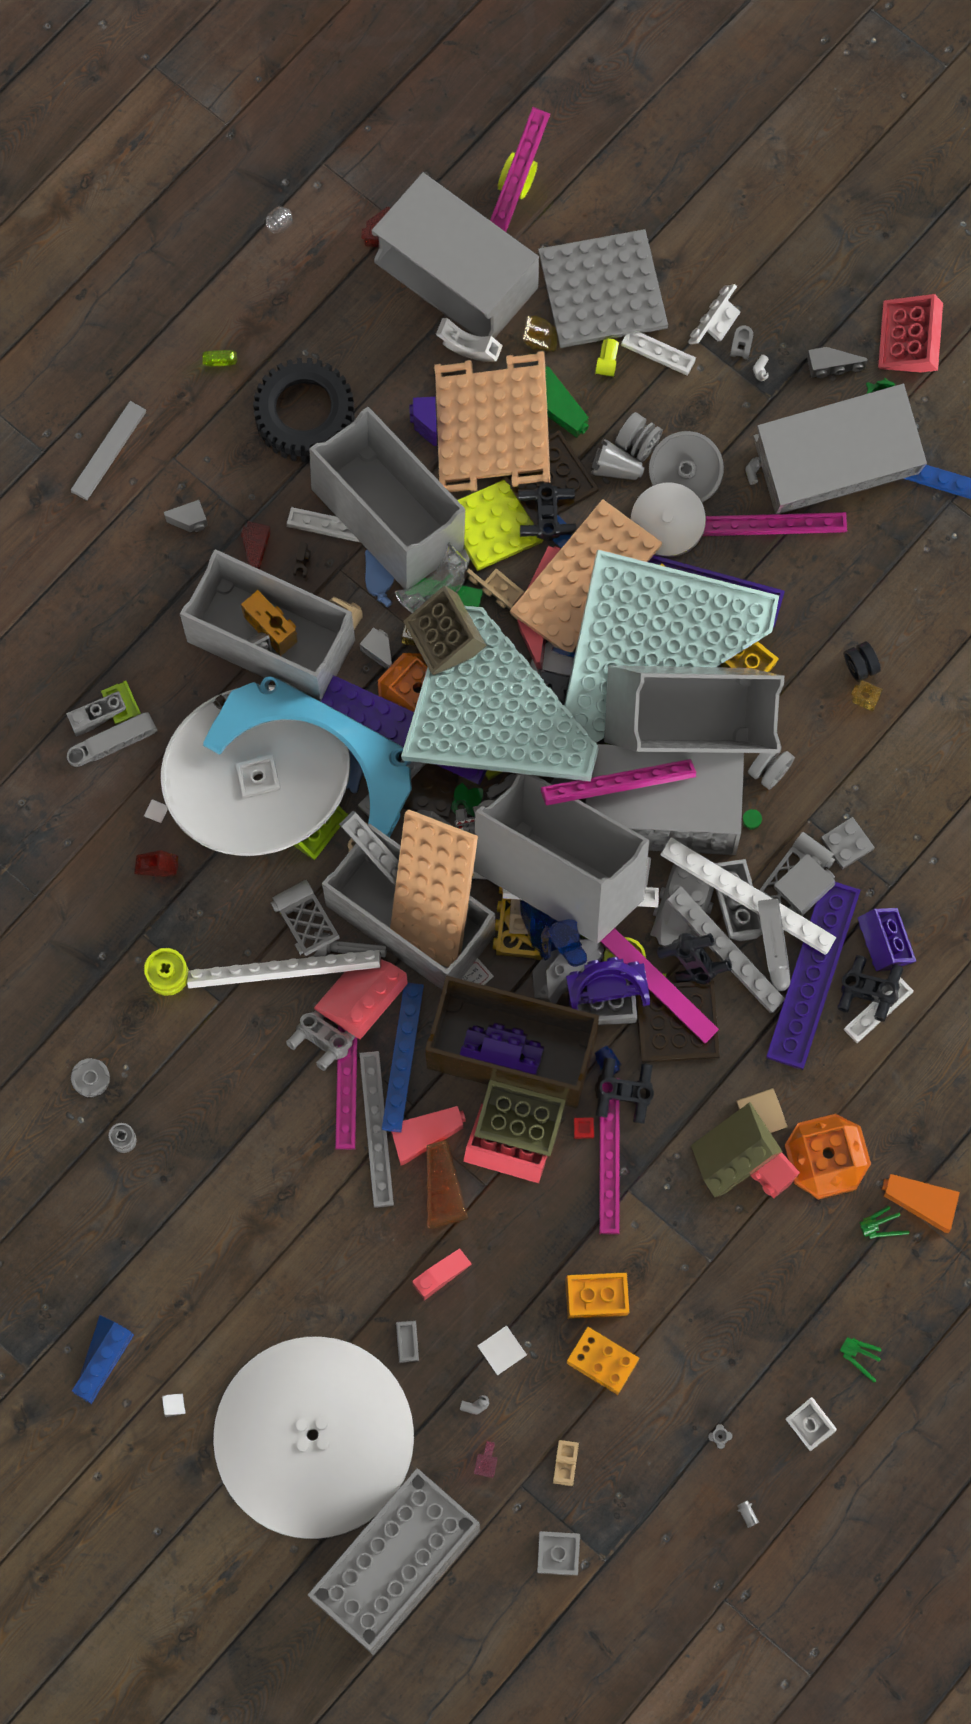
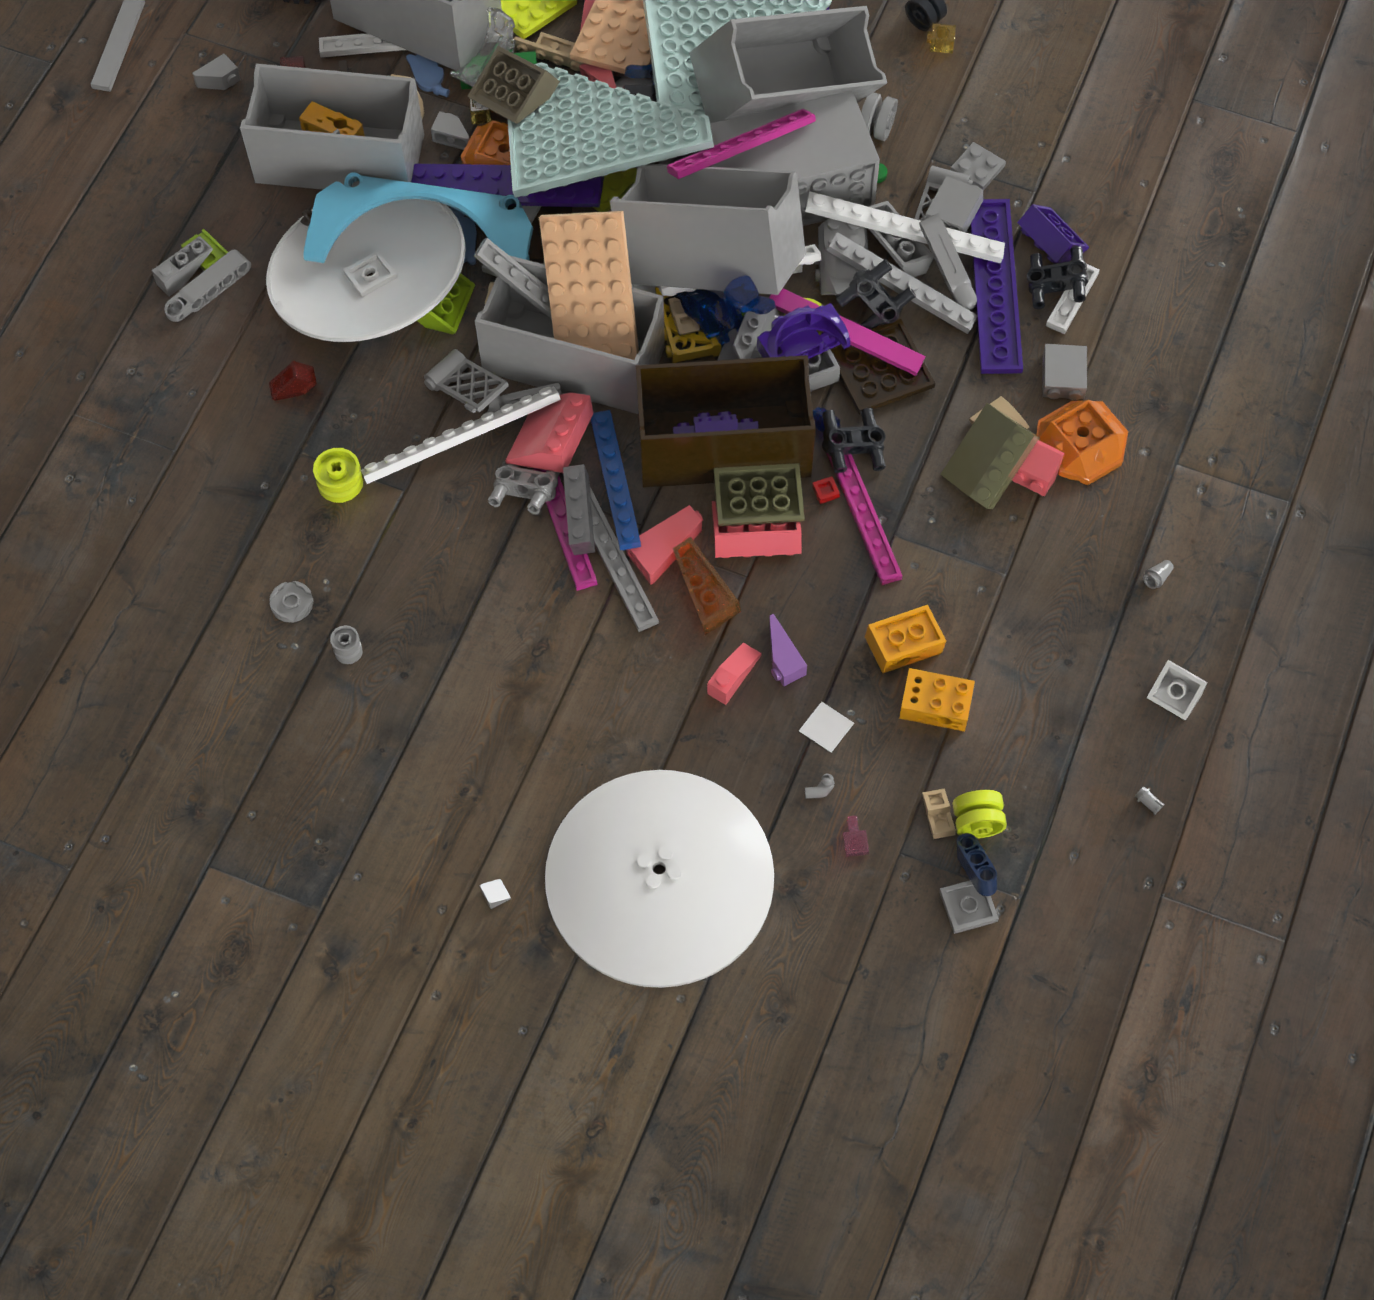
camera: 20 degrees left, 10 degrees down
(103, 1354) = (400, 861): blue wedge -> none
(156, 811) = (275, 338): white sticker -> none
(360, 1079) = (579, 509): none -> flat silver brick
(395, 1561) = (800, 960): light grey piece -> none
(407, 1341) = (723, 749): light grey tile -> none
(488, 1278) = (786, 660): none -> medium lavender slope
(576, 1513) = (976, 864): none -> dark blue beam
(597, 1476) = (979, 813): none -> neon yellow wheel
(720, 1431) = (1088, 729): light grey plate -> none
(839, 1083) = (1064, 371): none -> light grey brick
(842, 1308) = (1158, 574): none -> light grey cone
(852, 1347) = (1184, 607): green plant -> none
(870, 1226) = (1152, 490): green plant -> none
(924, 1200) = (1193, 450): orange slope -> none

